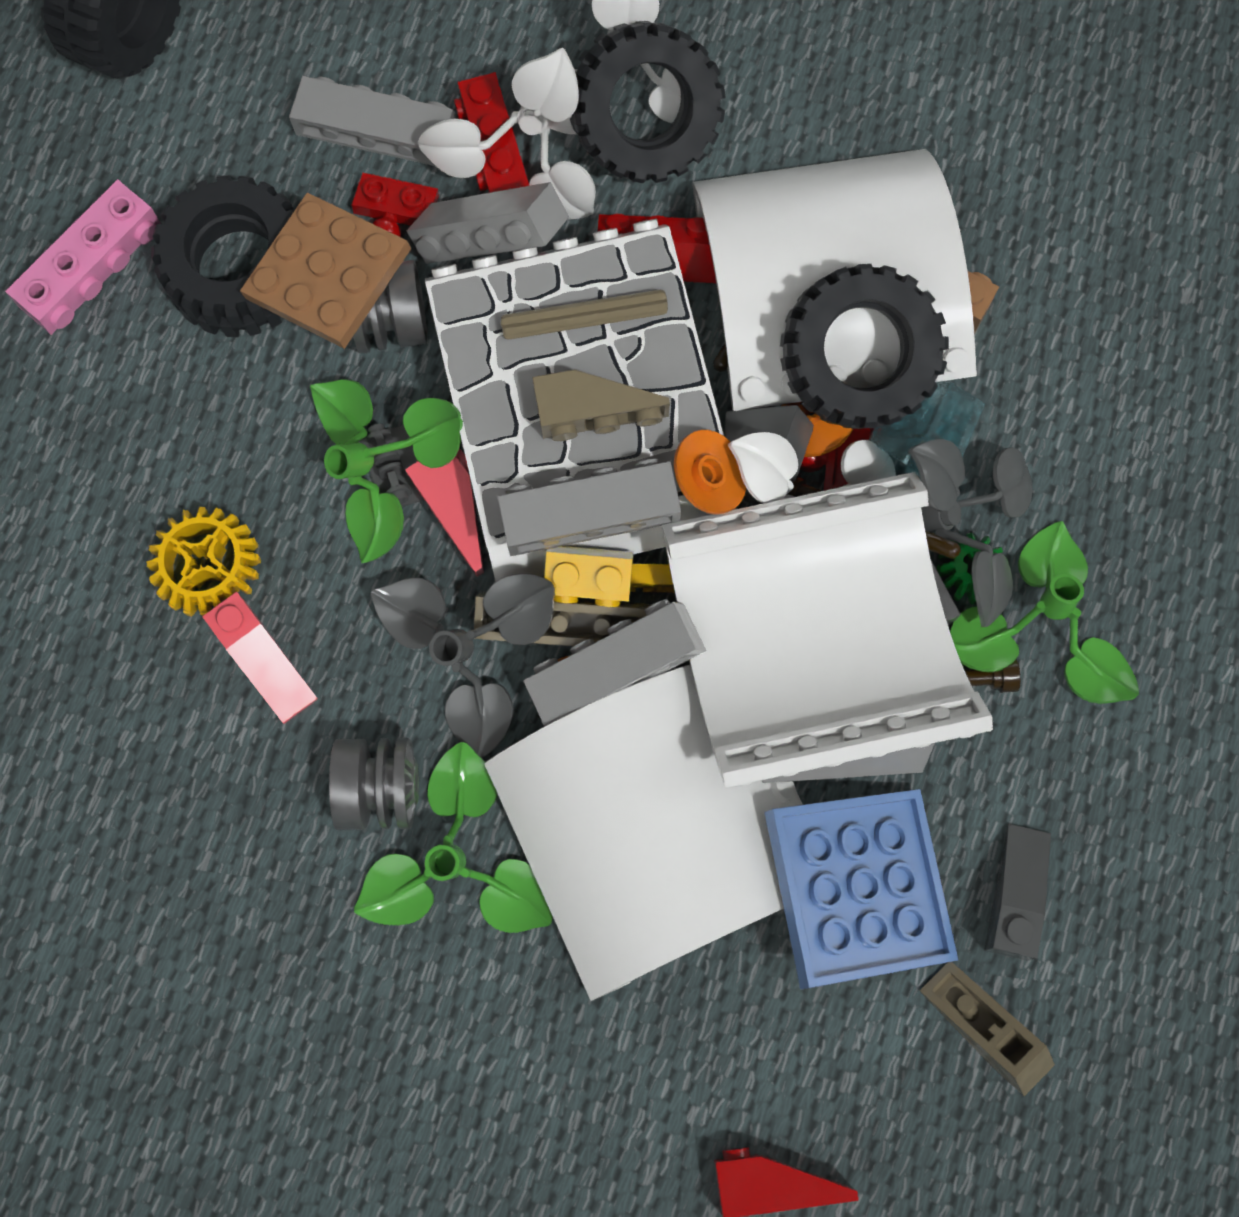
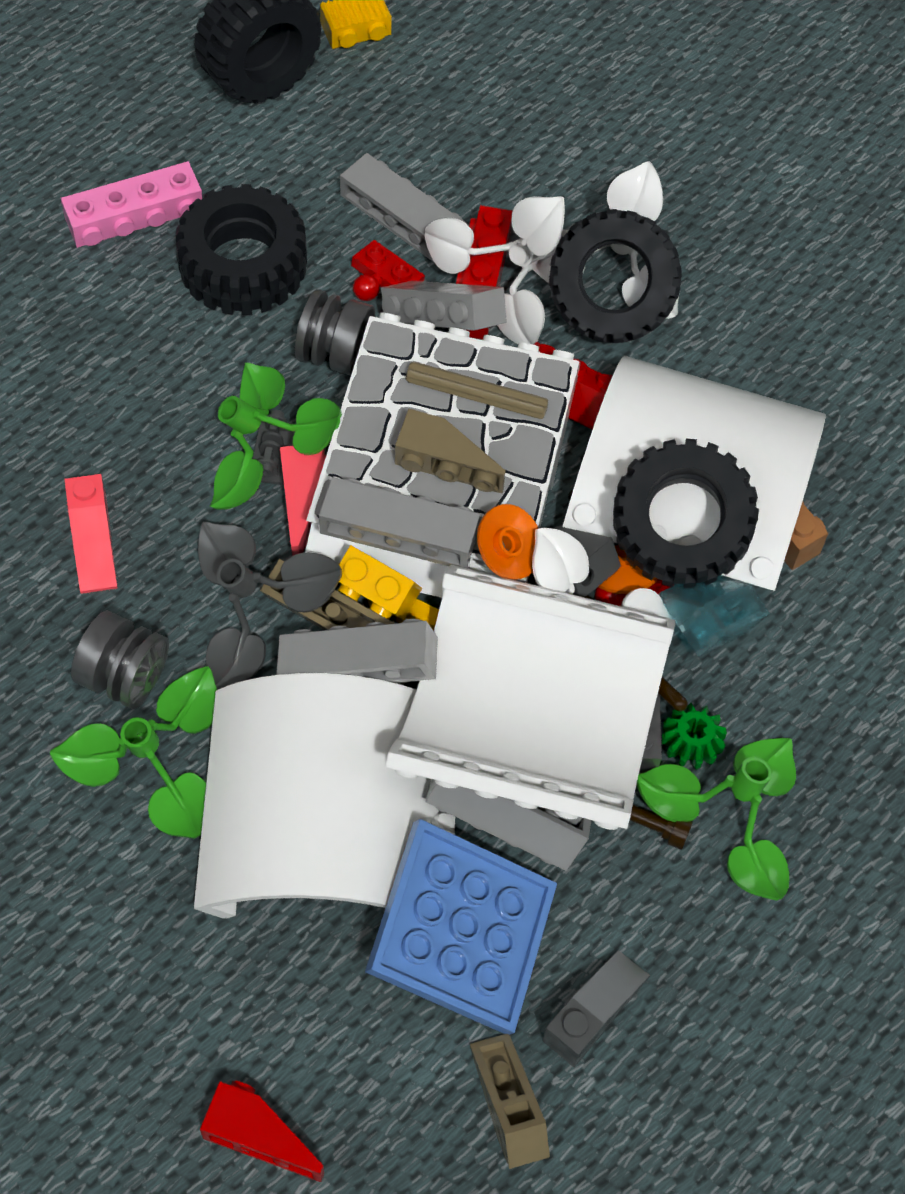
camera: 20 degrees right, 15 degrees down
(211, 546) = (100, 431): yellow gear -> none
(326, 270) = (301, 279): medium nougat plate -> none
(942, 473) = (696, 634): dark grey plant -> none

